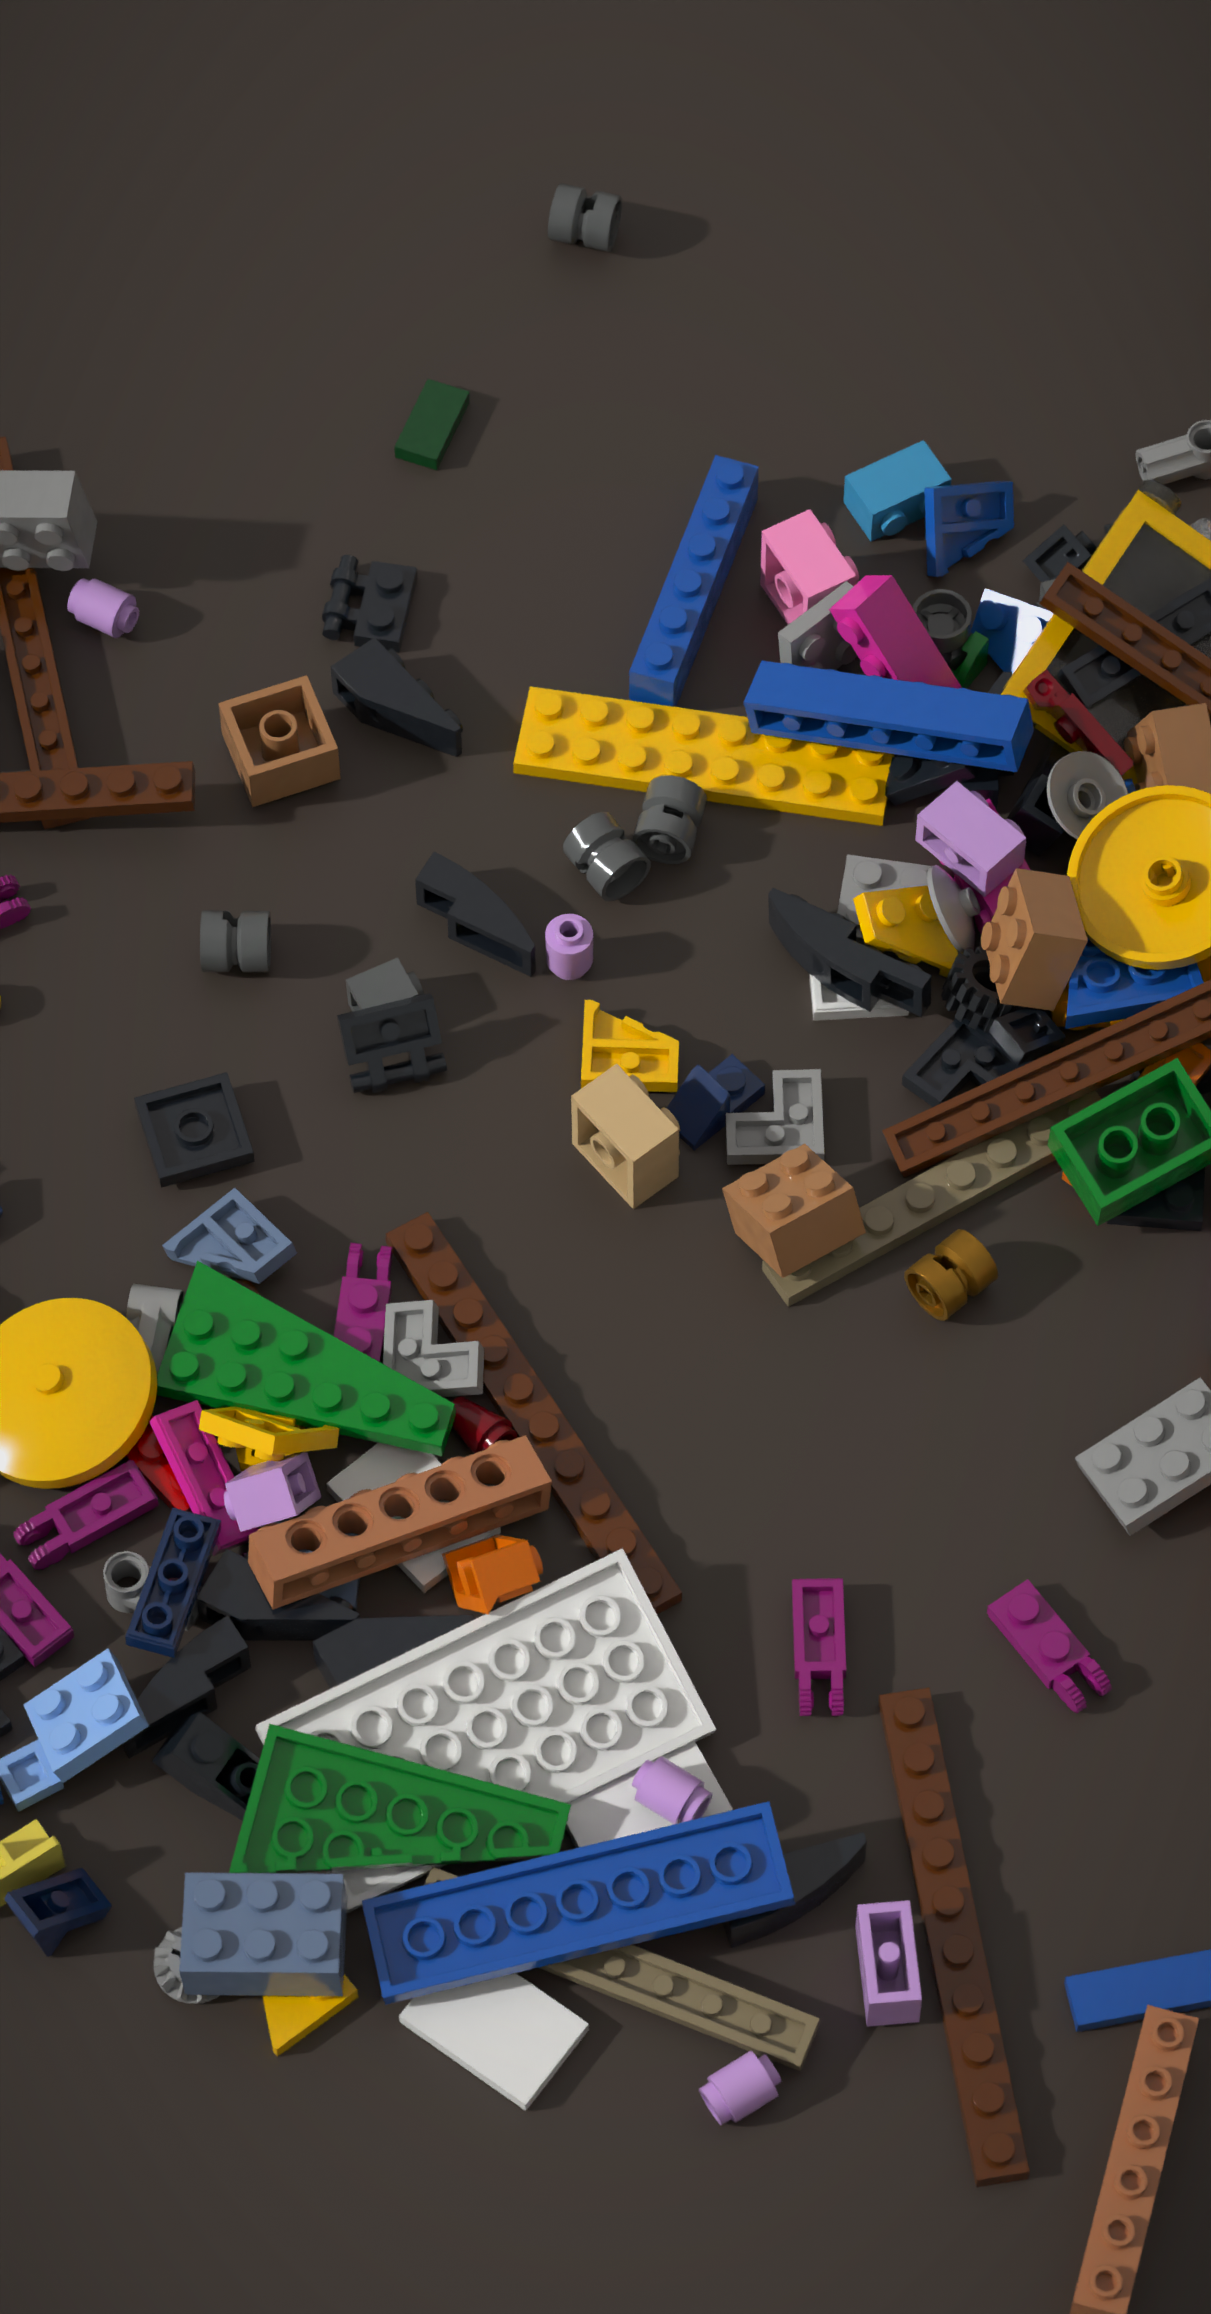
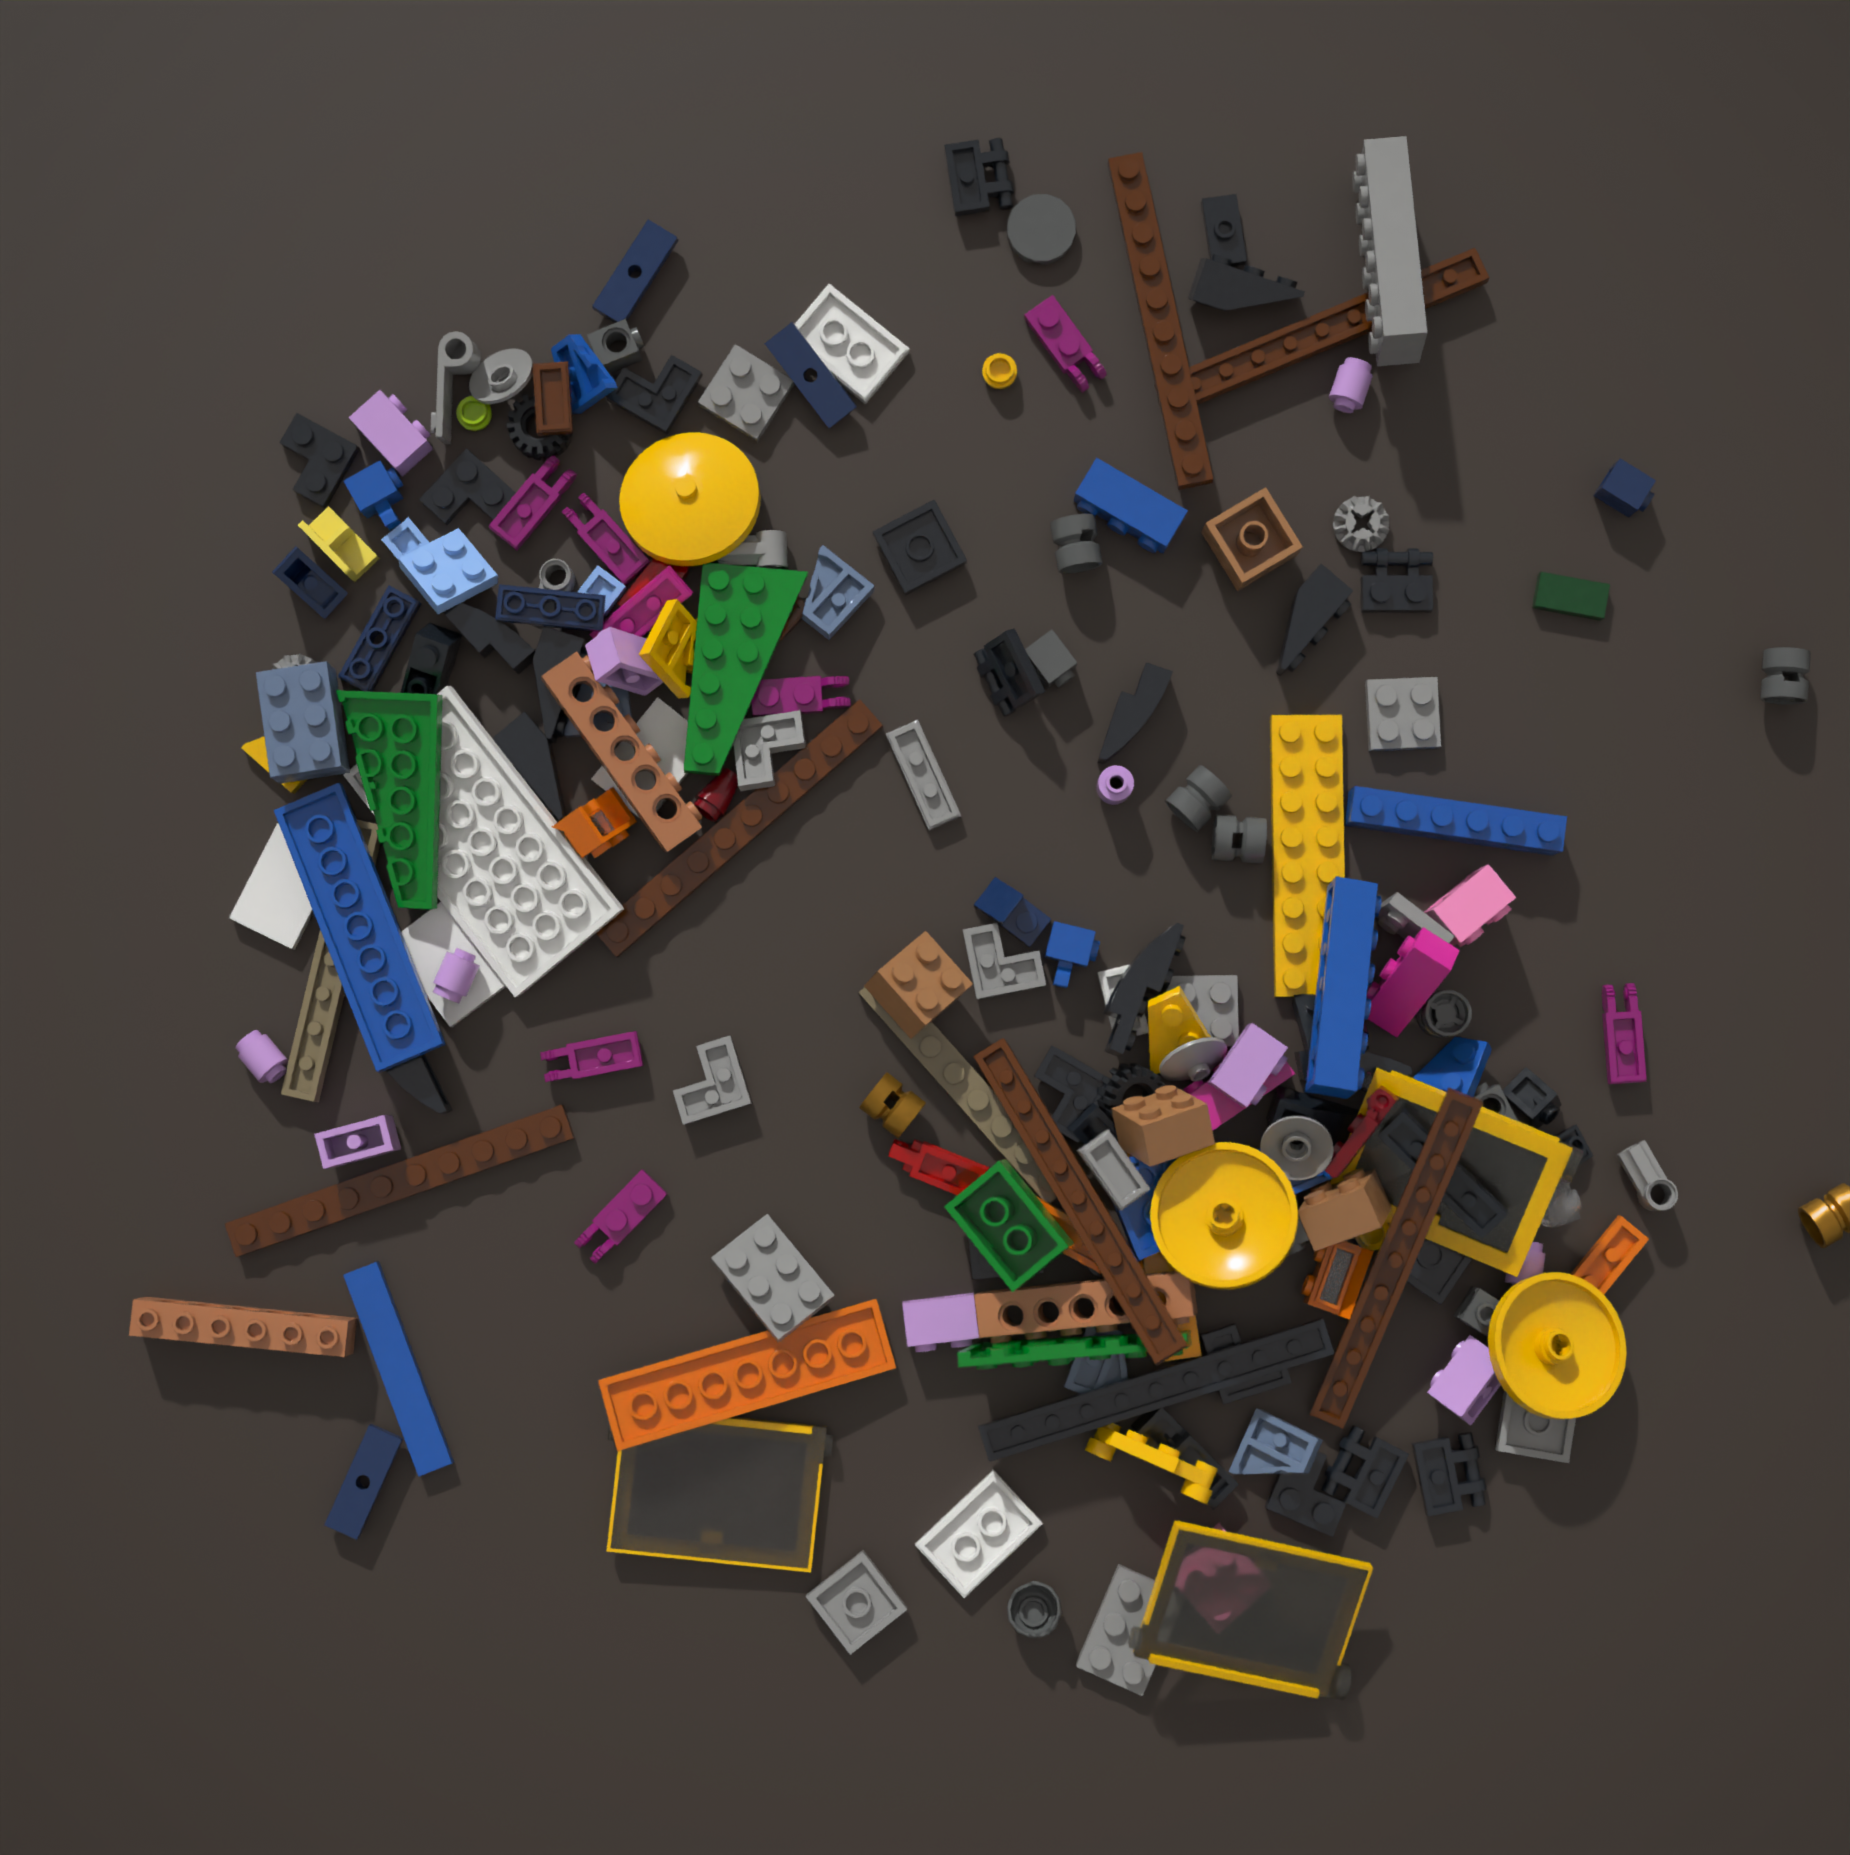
camera: 80 degrees right, 25 degrees up
(135, 1819) = (370, 660): none -> dark blue tile
(148, 1526) = (603, 583): none -> light blue plate
(199, 875) = (1129, 506): none -> blue brick
(280, 645) = (1361, 540): none -> light grey gear
(310, 342) = (1625, 488): none -> dark blue brick
(505, 1178) = (923, 775): none -> light grey tile
(542, 624) = (1403, 714): none -> light grey plate
(626, 1135) = (958, 853): tan brick -> none
(630, 1045) = (1037, 841): yellow wing -> none
(777, 1035) = (1070, 947): none -> blue brick
(885, 1482) = (723, 1087): none -> light grey plate
(892, 490) = (1571, 962): dark azure brick -> none
(963, 520) = (1553, 1017): blue wing -> none
(975, 661) = (1426, 1041): green tile -> none
(1001, 455) = (1623, 1037): none -> magenta hinge
(1043, 1236) = (937, 1165): none -> red hinge
(1084, 998) = (1113, 1170): none -> light grey tile

